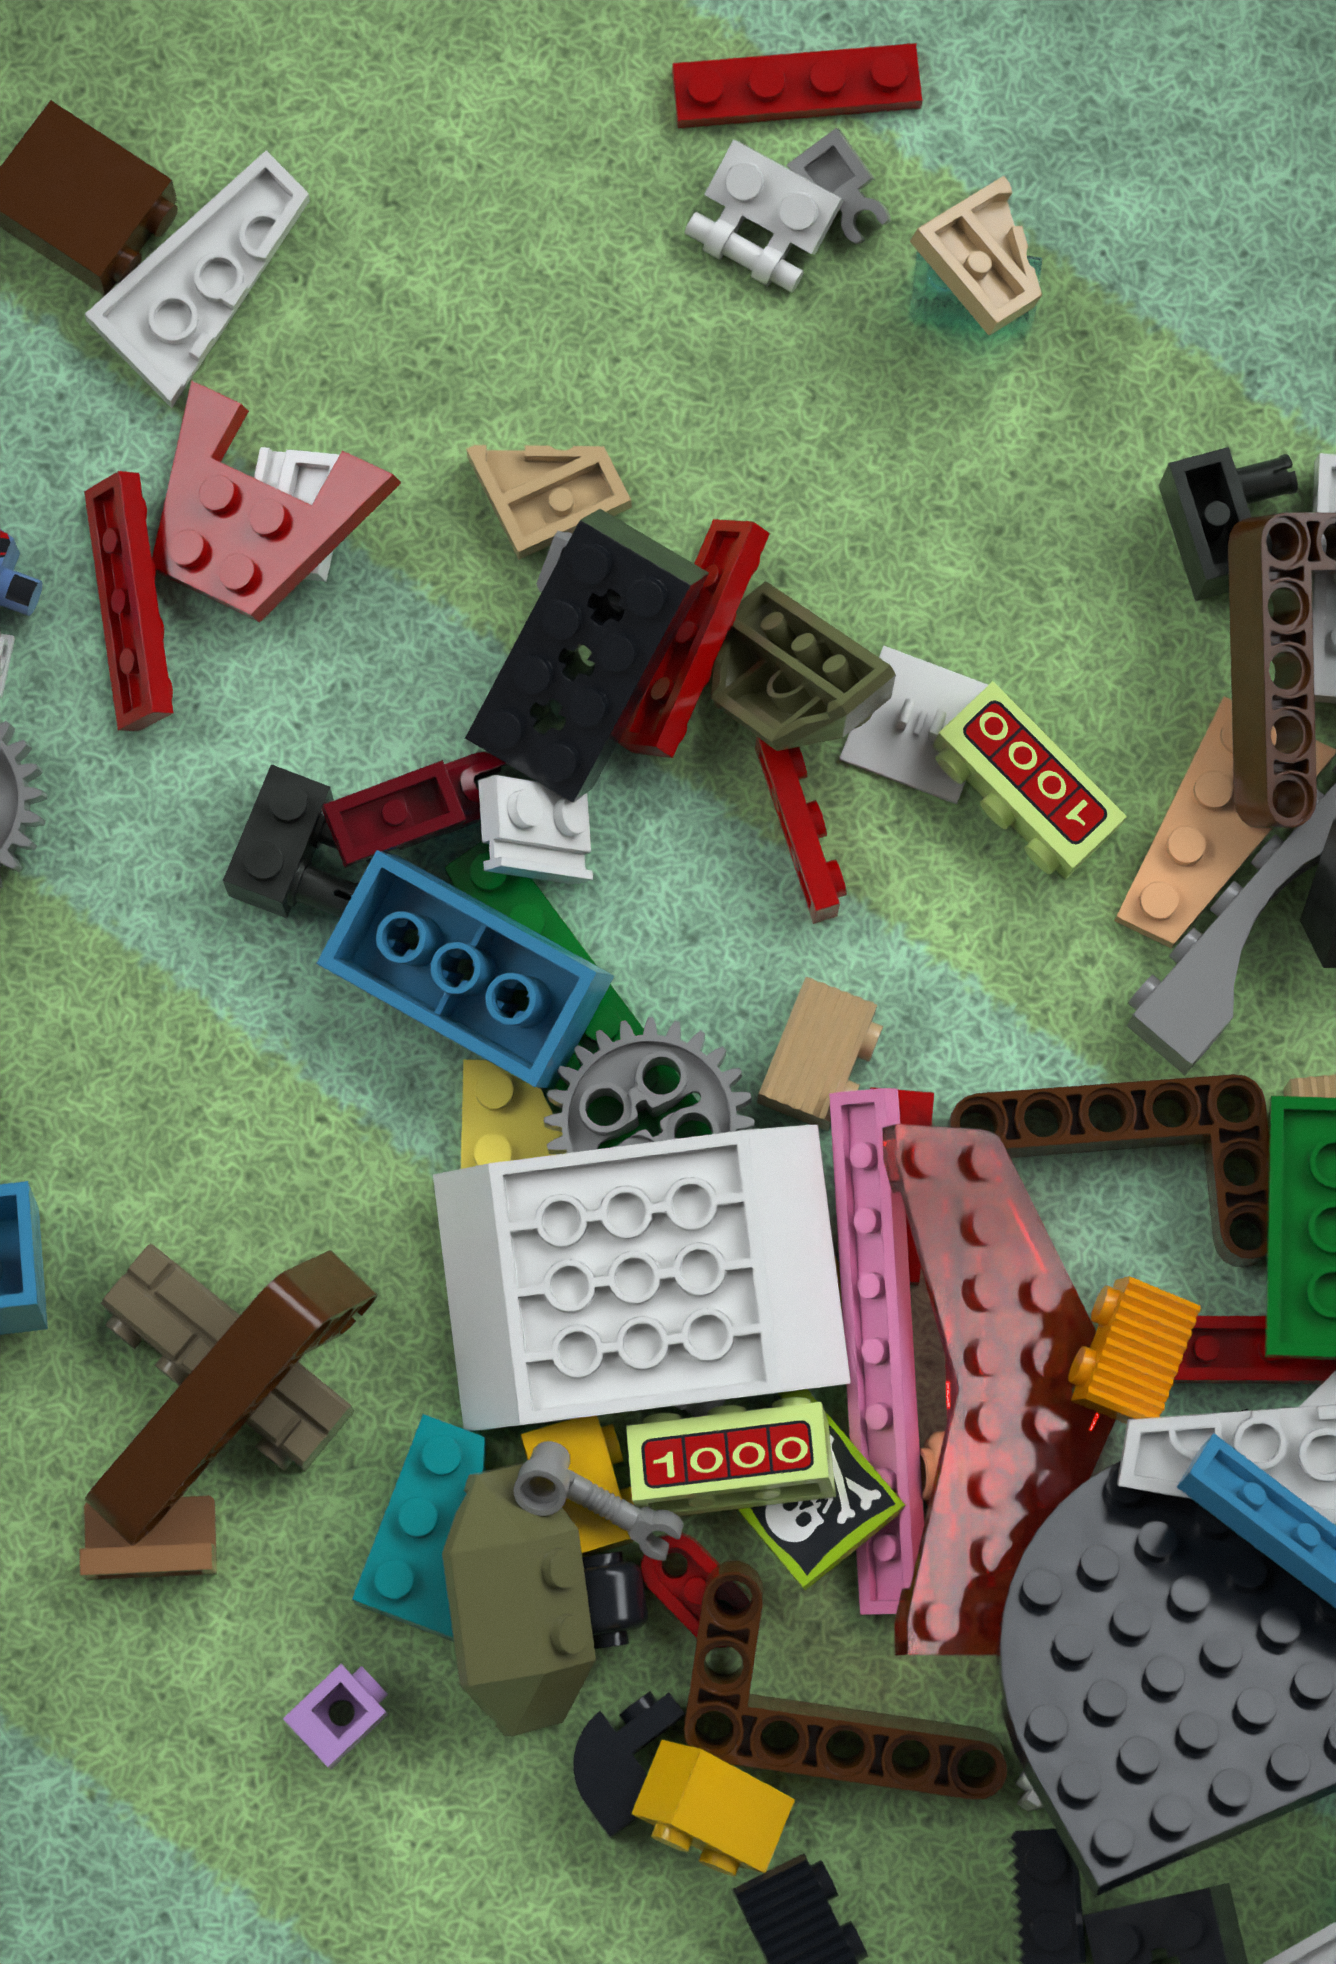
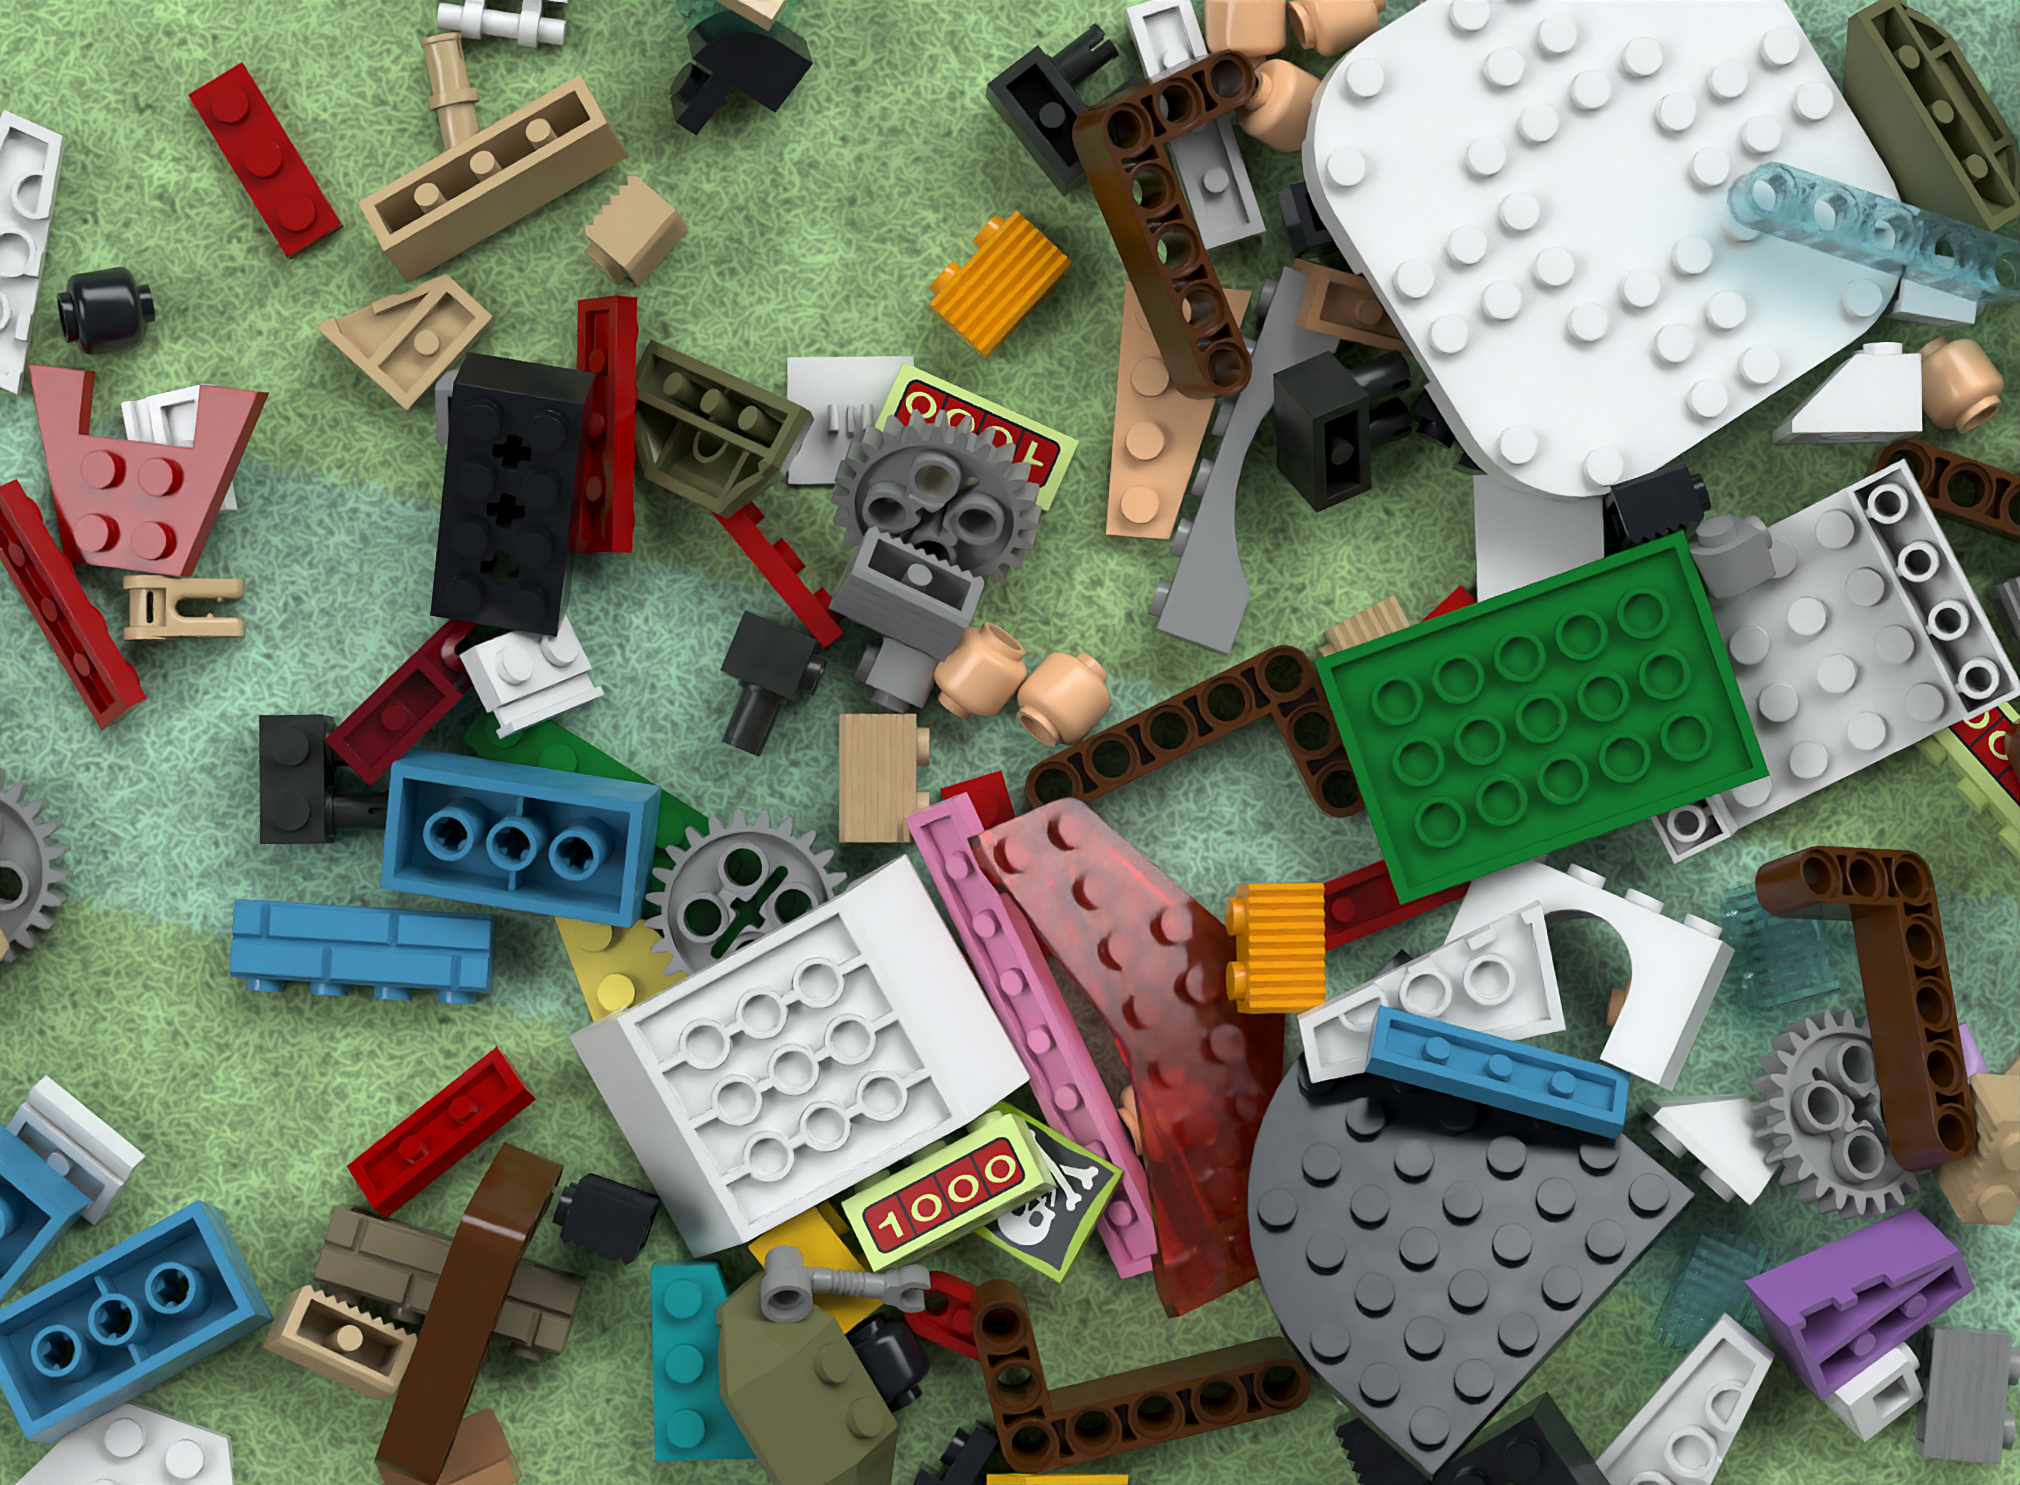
camera: 20 degrees left, 10 degrees up
(102, 1370) = (340, 1342): none -> tan brick
(236, 631) = (167, 596): none -> tan piece
(275, 1218) = (441, 1132): none -> red plate
(276, 1018) = (363, 947): none -> dark azure brick
(281, 359) = (105, 310): none -> black head
(401, 1352) = (606, 1217): none -> black brick
(481, 289) = (265, 160): none -> red plate
(673, 299) = (450, 88): none -> tan pin
(683, 378) = (493, 179): none -> tan brick
(761, 911) = (772, 669): none -> pearl dark grey brick
(791, 472) = (633, 233): none -> tan brick
(874, 965) = (898, 674): none -> light grey plate
(912, 891) = (907, 594): none -> light grey brick
(950, 993) = (981, 672): none -> light nougat head
(954, 353) = (741, 55): none -> black brick
(994, 870) = (901, 468): none -> light grey gear
(1018, 1048) = (1063, 699): none -> light nougat head
(1106, 652) = (999, 283): none -> light orange brick

